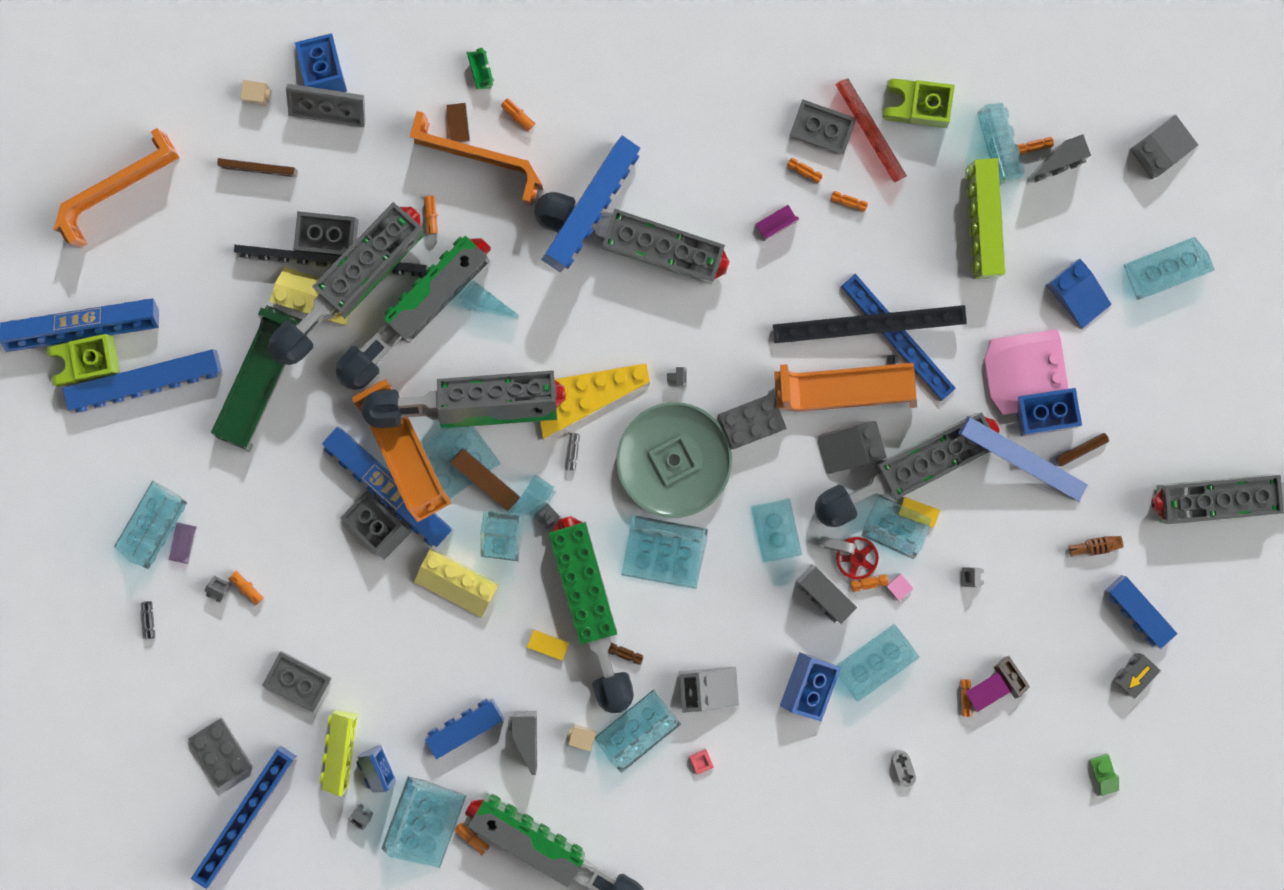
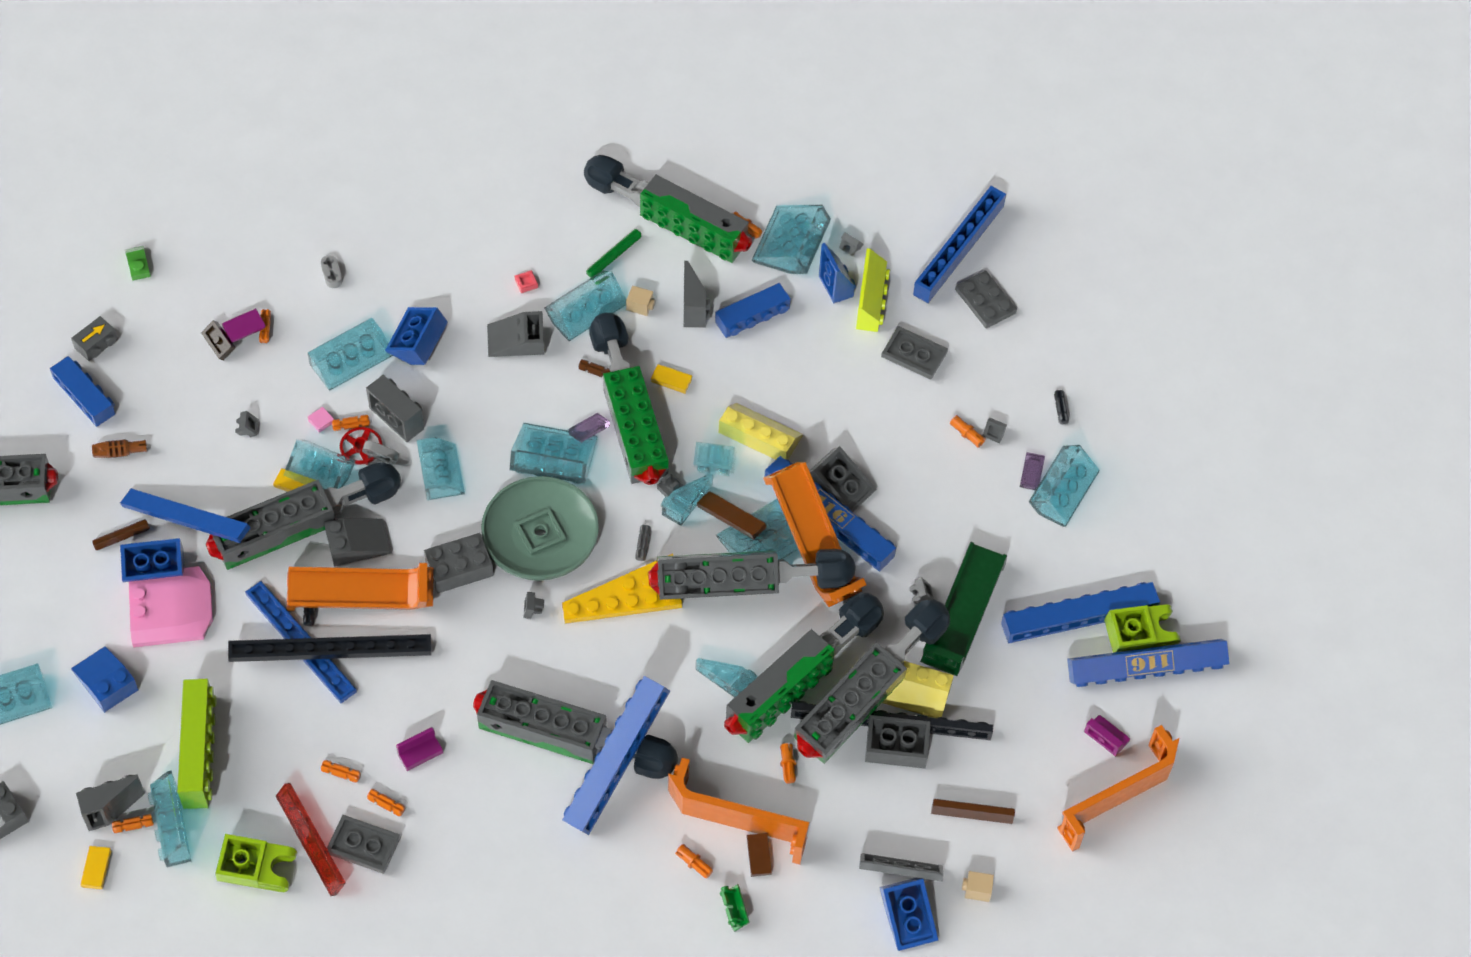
camera: 175 degrees right, 30 degrees down
(125, 252) = (1106, 734): none -> magenta panel
(295, 400) = (924, 591): none -> dark grey tile
(611, 799) = (613, 253): none -> green axle
(629, 581) = (589, 427): none -> clear purple tile
(1062, 102) = (95, 867): none -> yellow tile

